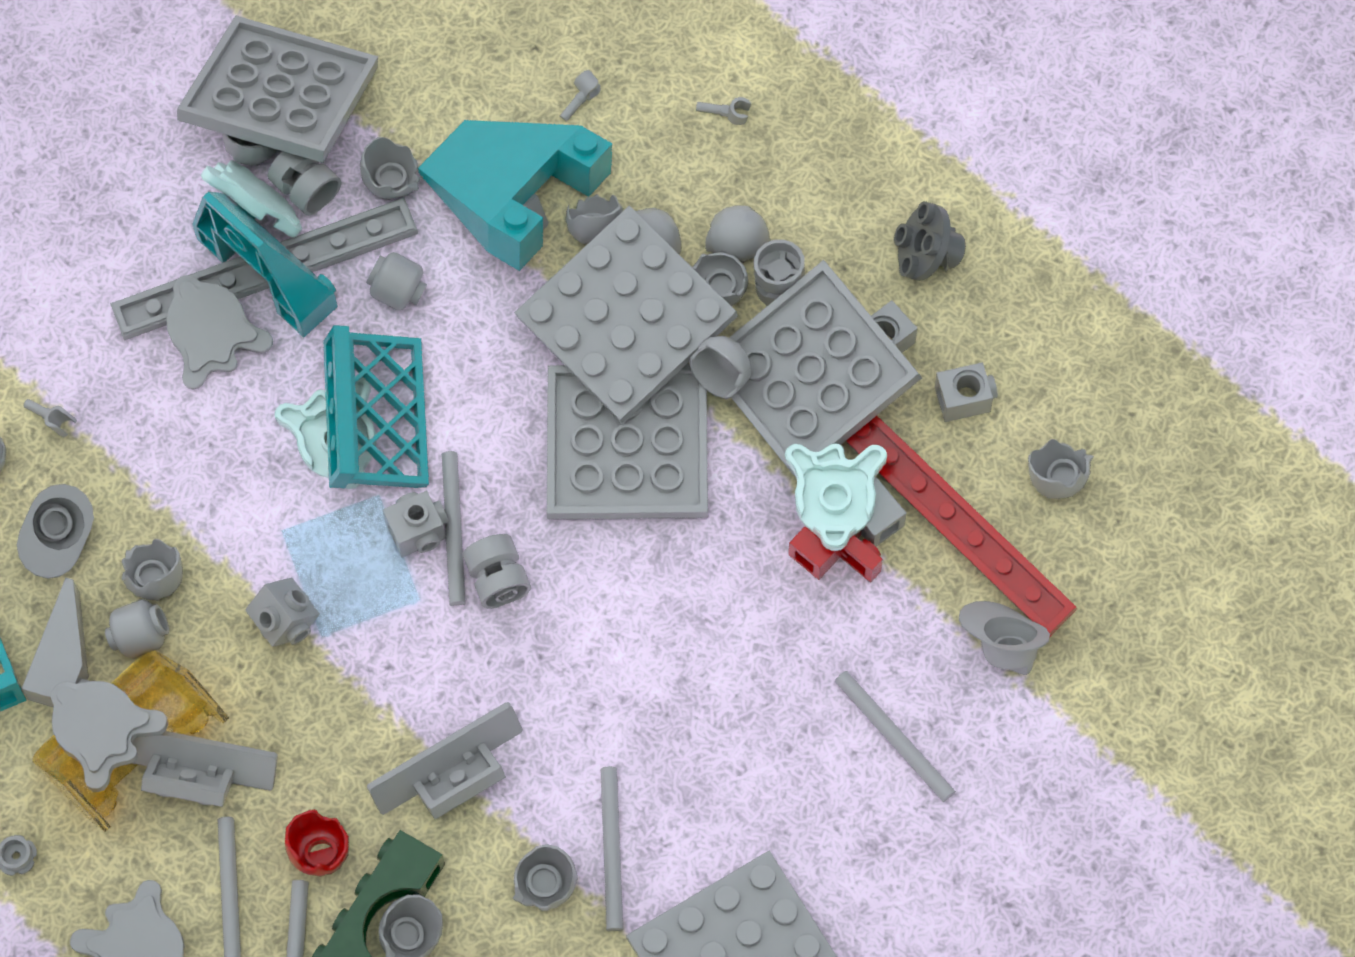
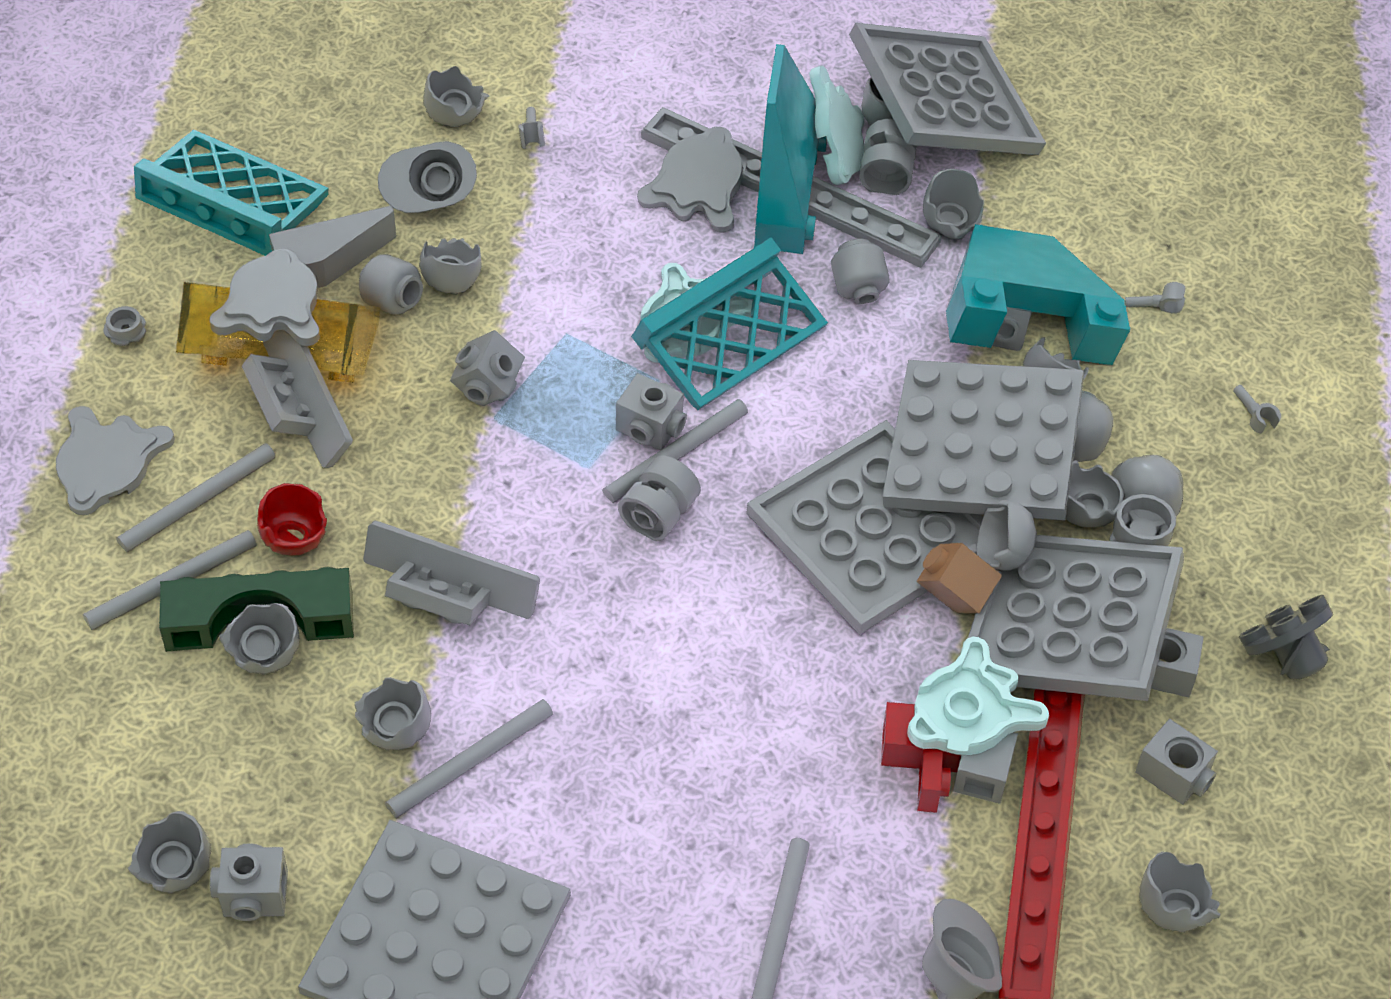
camera: 50 degrees right, 15 degrees down
(724, 420) = (958, 577): none -> medium nougat brick

